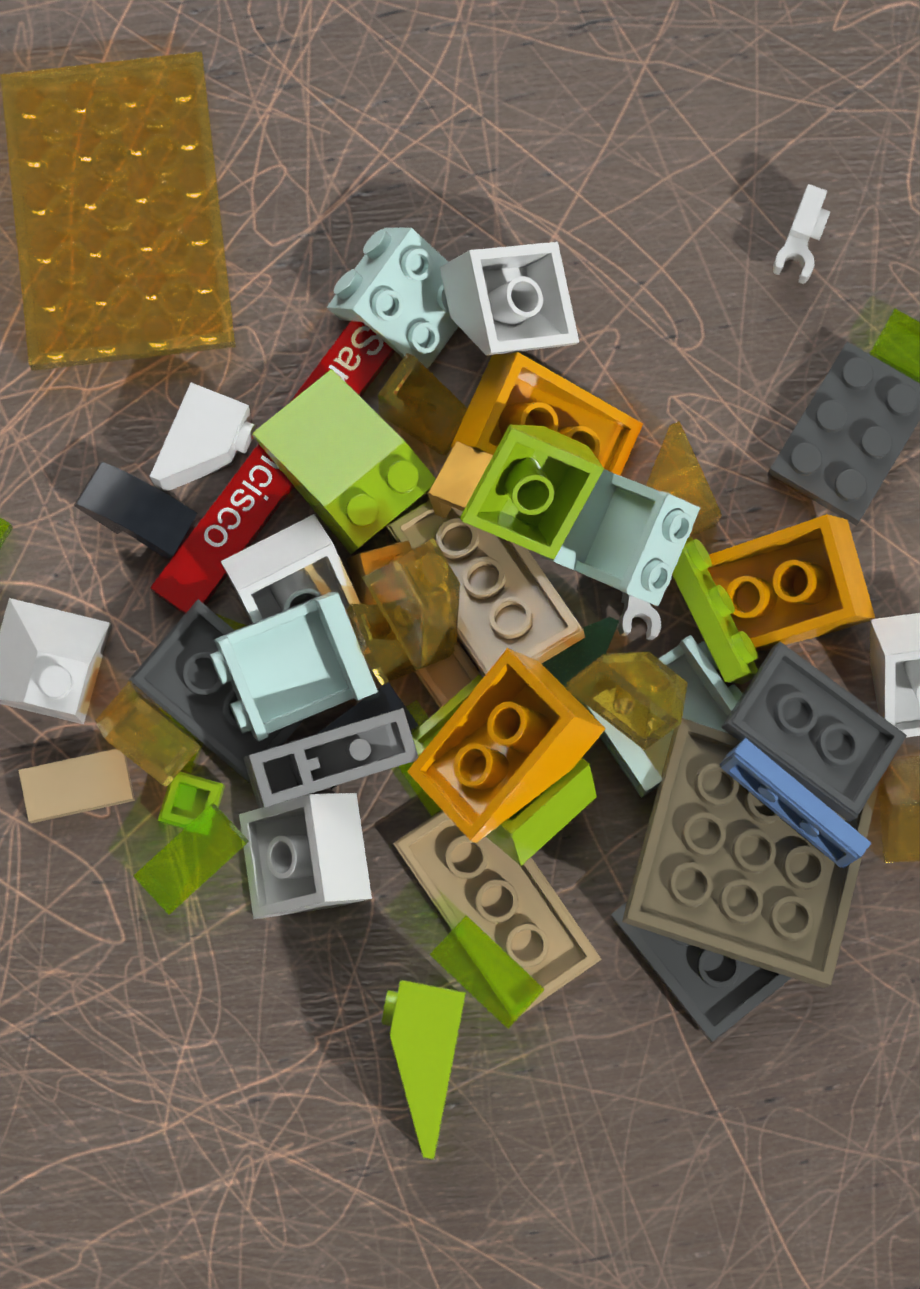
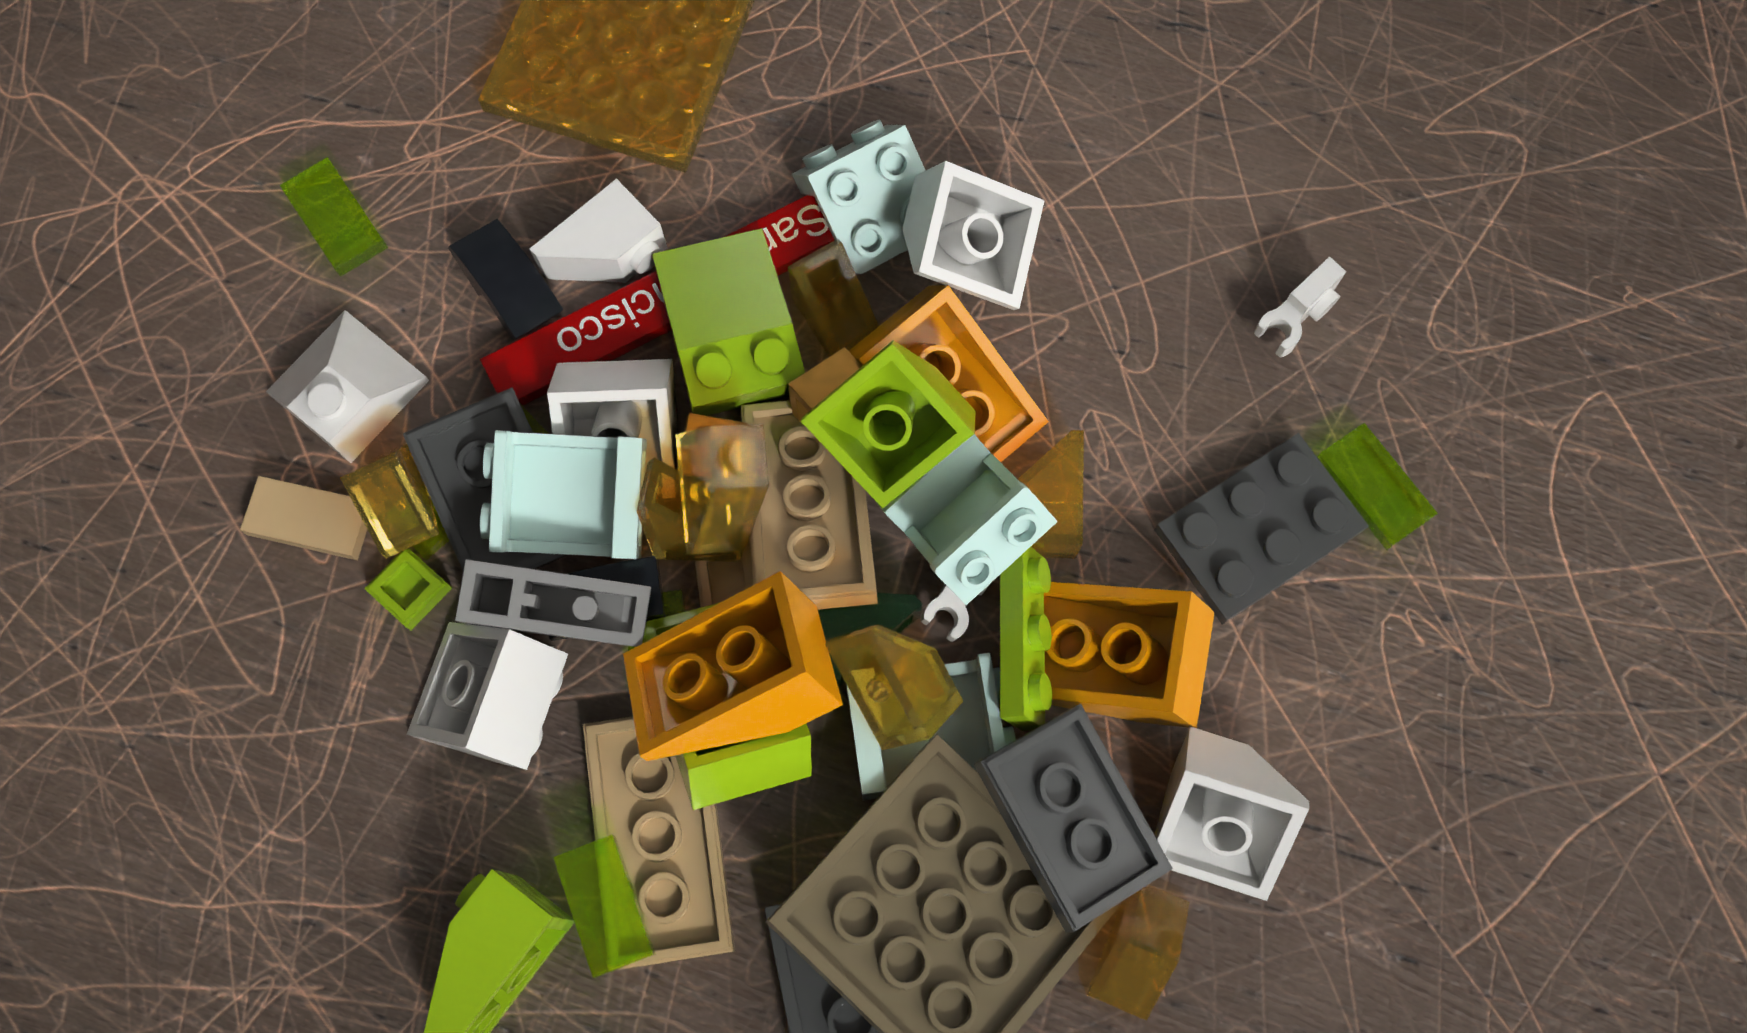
camera: 30 degrees right, 5 degrees down
(191, 858) = (373, 642): clear neon green tile -> none
(794, 804) = (1012, 885): medium blue tile -> none

